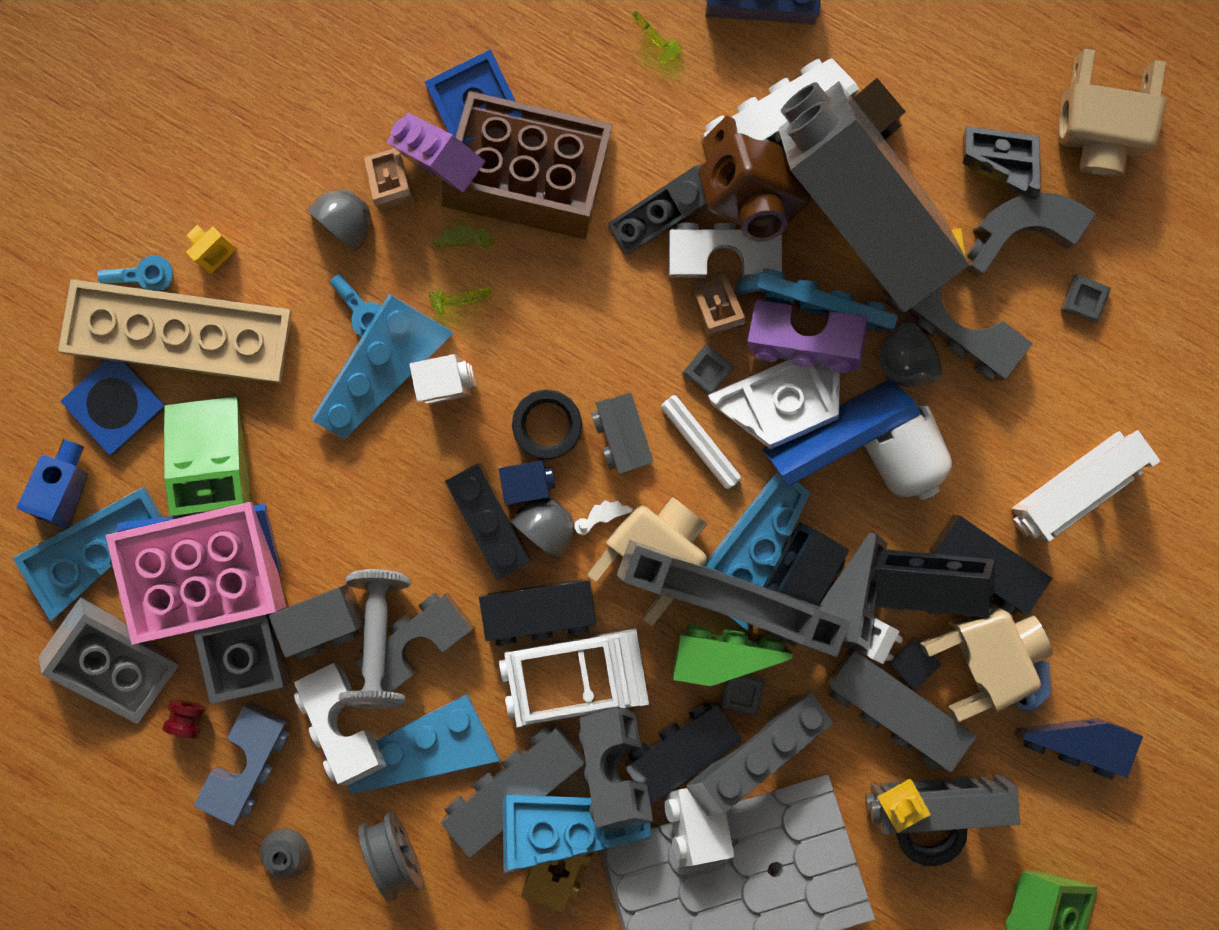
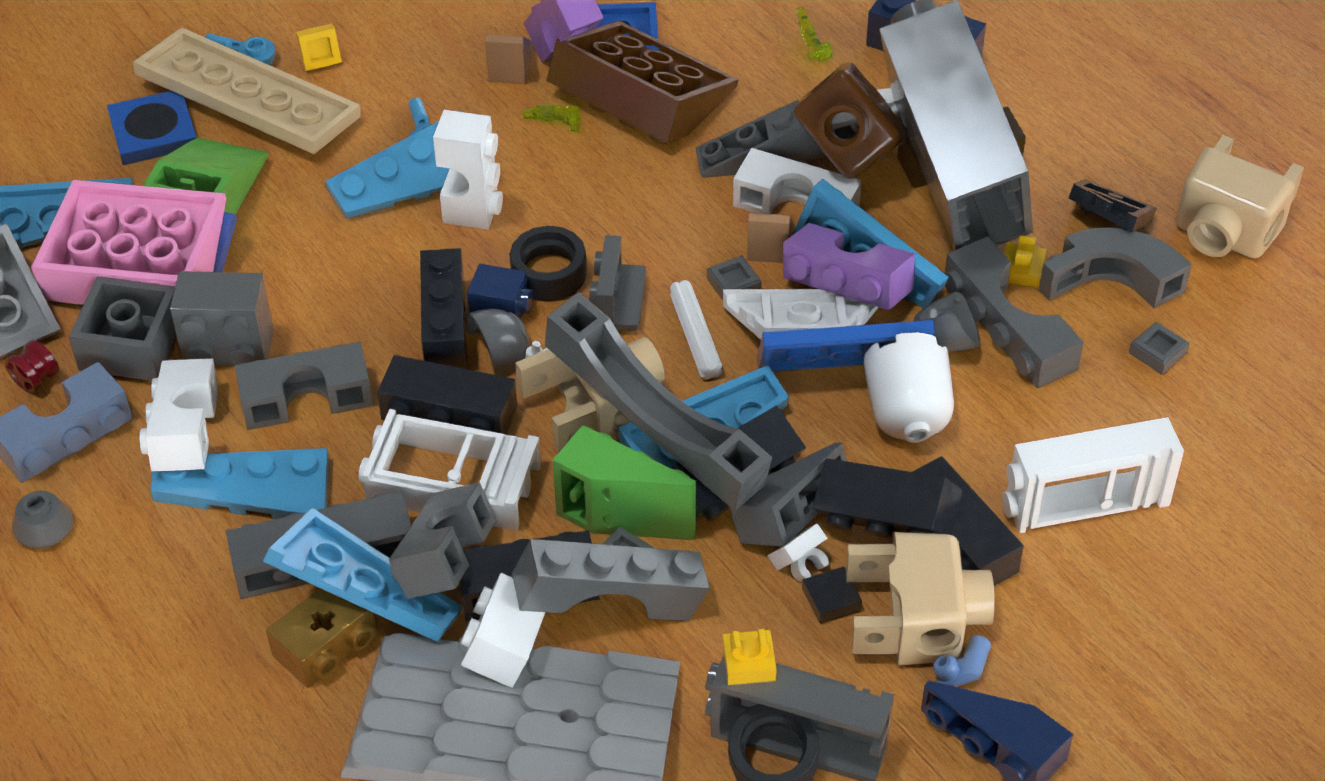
camera: 20 degrees right, 40 degrees down
(50, 499) = (52, 148): blue torso -> none
(343, 216) = (456, 61): dark grey helmet -> none
(375, 633) = (234, 375): light grey hose -> none
(390, 857) = (151, 539): dark grey wheel -> none
(439, 300) = (525, 152): clear neon green piece -> none
(899, 709) = (800, 624): dark grey brick -> none

